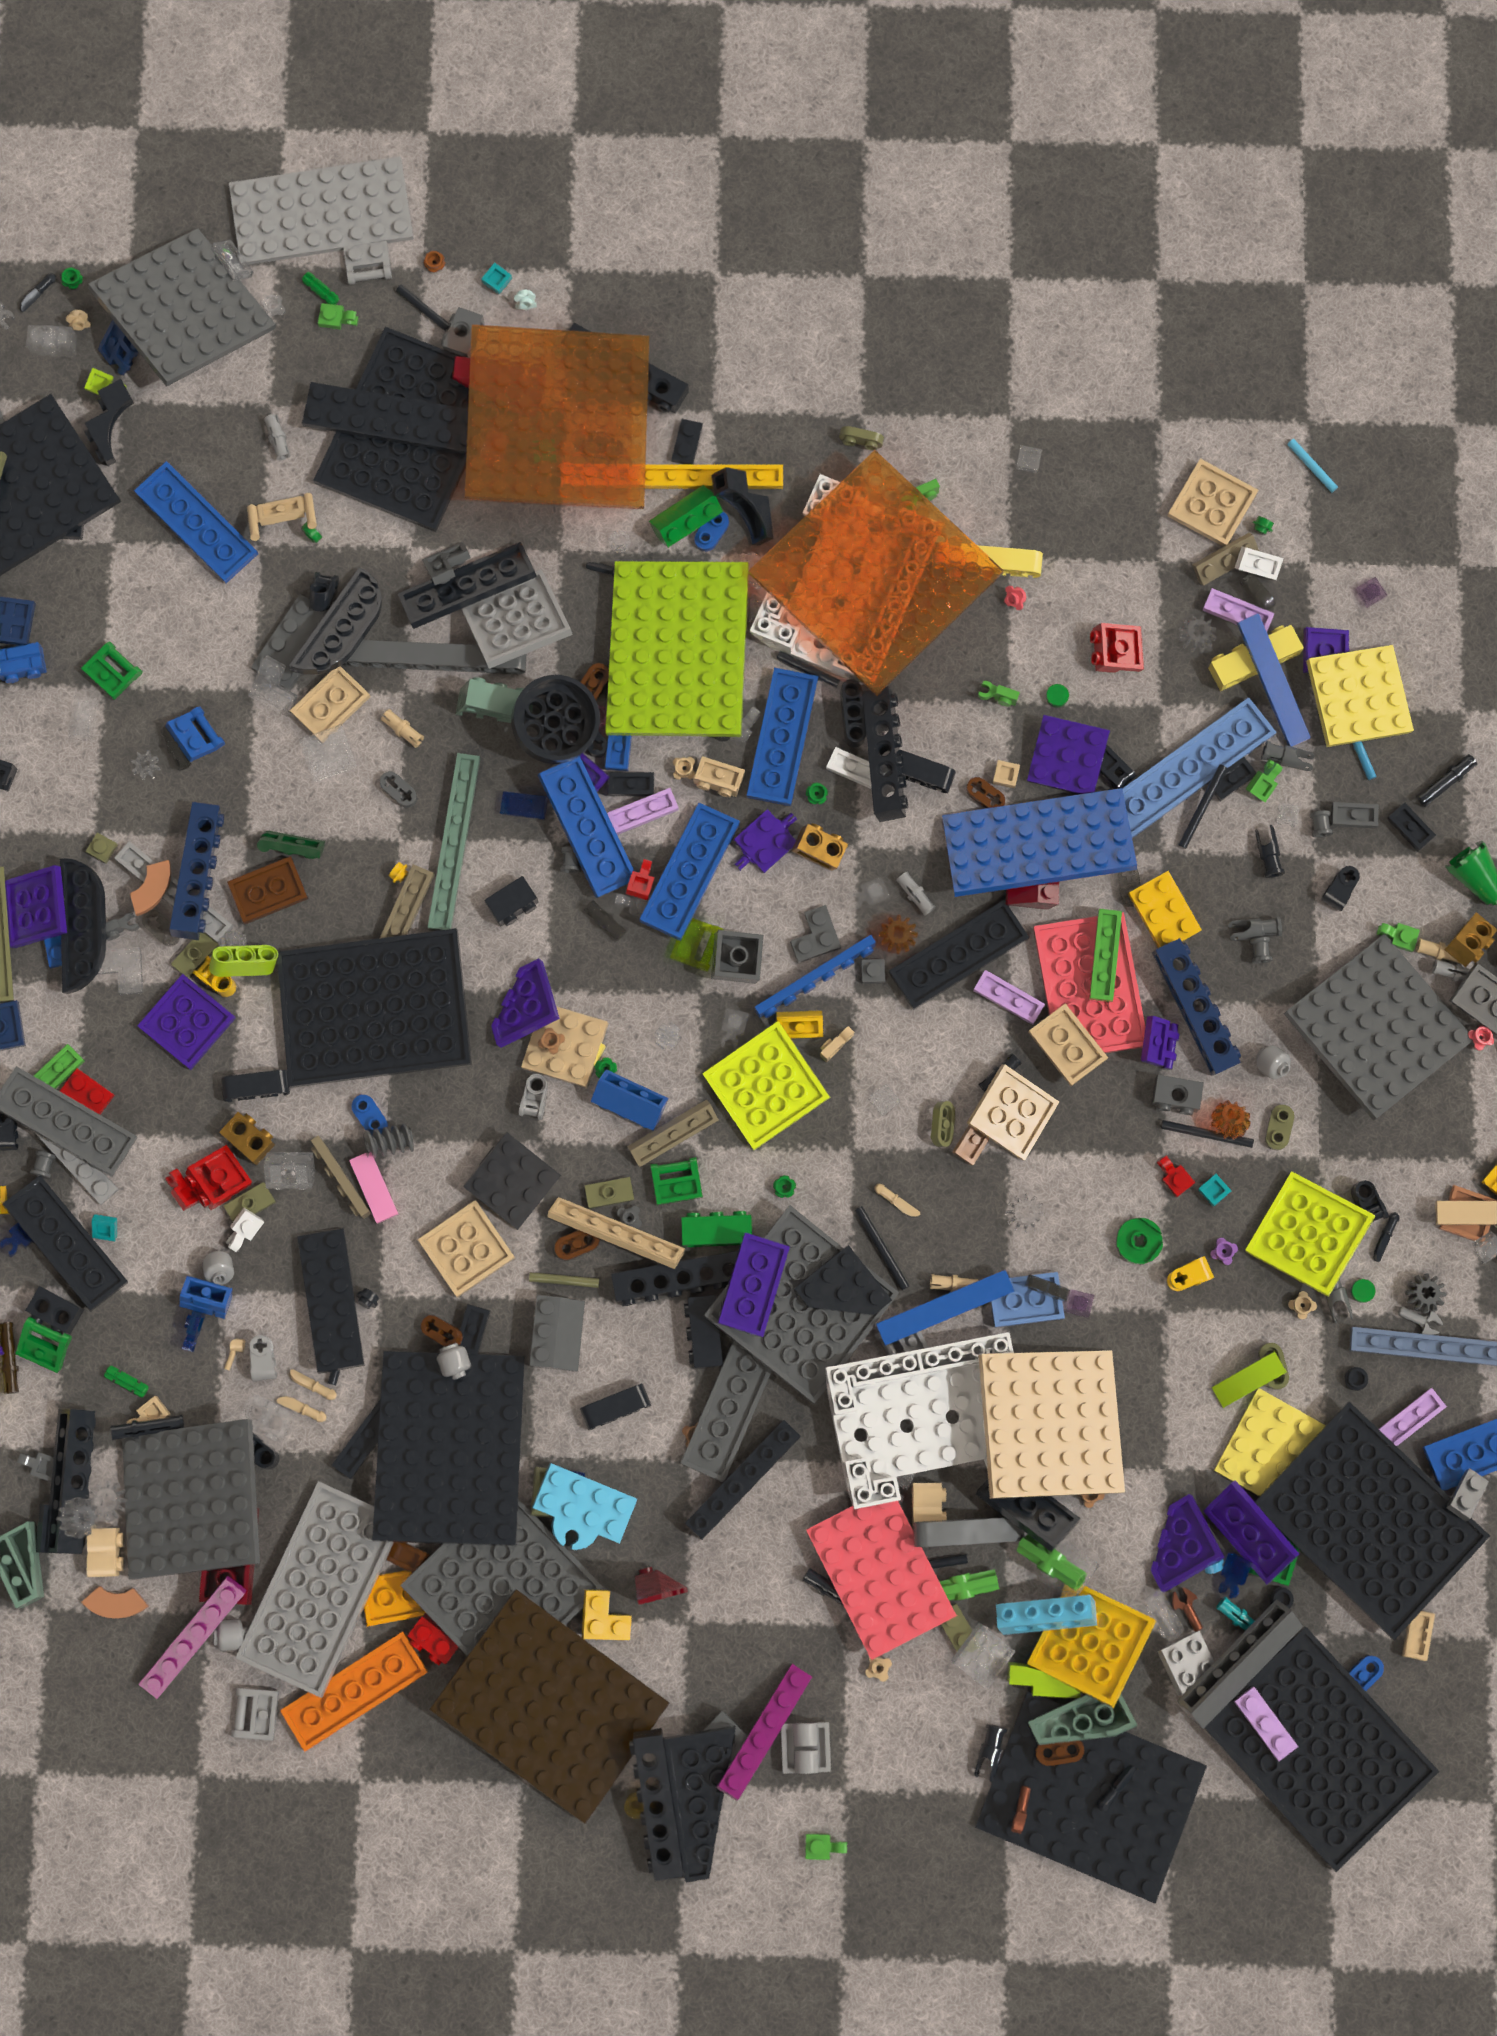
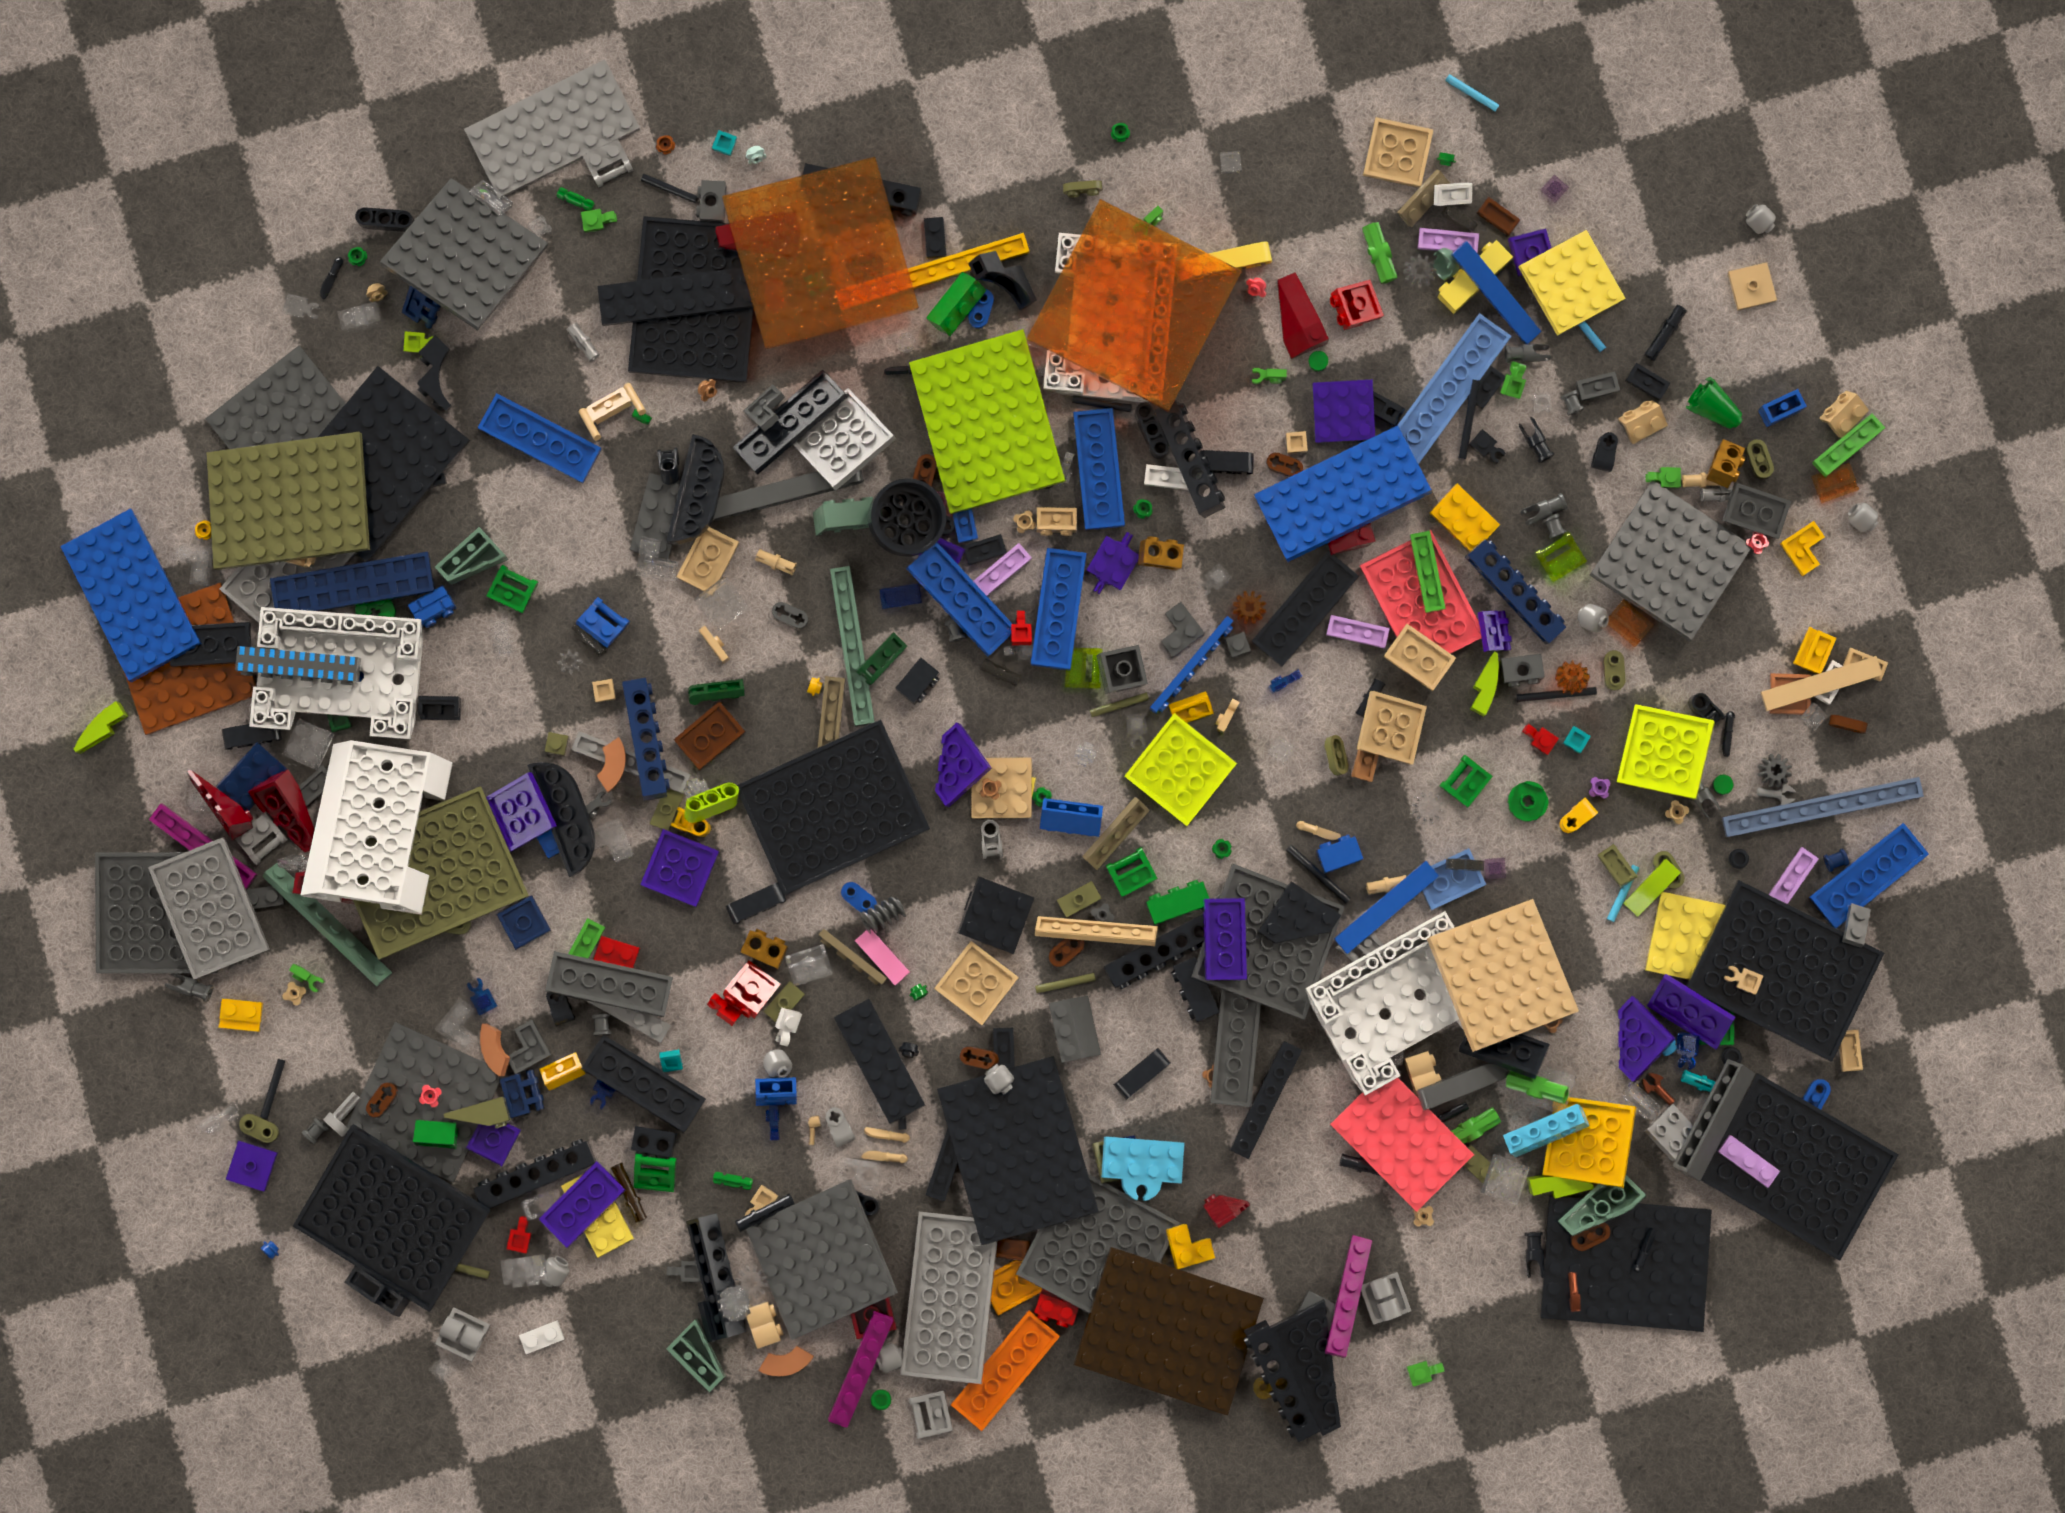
camera: 15 degrees left, 5 degrees up
(78, 622) = (470, 557): none -> sand green wedge
(106, 243) = (377, 214): none -> black beam
(171, 807) = (604, 690): none -> tan plate
(206, 1679) = (881, 1399): none -> green tile
(307, 794) = (715, 643): none -> tan plate
(389, 521) = (707, 389): none -> medium nougat plate
(399, 1238) = (918, 992): none -> green plate
(481, 864) = (882, 658): none -> dark green plate
(722, 995) = (1119, 704): none -> olive bar
(907, 1026) = (1279, 683): none -> clear blue plate
(912, 1233) = (1339, 854): none -> blue brick
(915, 893) = (1252, 568): light grey pin -> none
(920, 387) = (1120, 127): none -> green plate
(1051, 648) = (1299, 320): none -> dark red wedge
(1082, 1203) = (1472, 784): none -> green plate
(1132, 1100) = (1486, 686): none -> lime slope
(1160, 601) = (1379, 252): none -> bright green piece
(1211, 839) = (1484, 444): none -> black plate
(1214, 1376) = (1620, 898): none -> medium azure bar
(1217, 1343) = (1617, 866): none -> olive plate
(1228, 634) = (1445, 264): none -> sand green hair
(1259, 993) = (1564, 562): none -> clear neon green plate
(1301, 603) = (1498, 216): none -> reddish brown tile
(1312, 1081) = (1629, 623): none -> clear orange plate
(1324, 1516) = (1747, 980): none -> tan plate
(1393, 867) = (1643, 421): none -> tan bracket
(1466, 1415) = (1836, 860): none -> dark blue bush

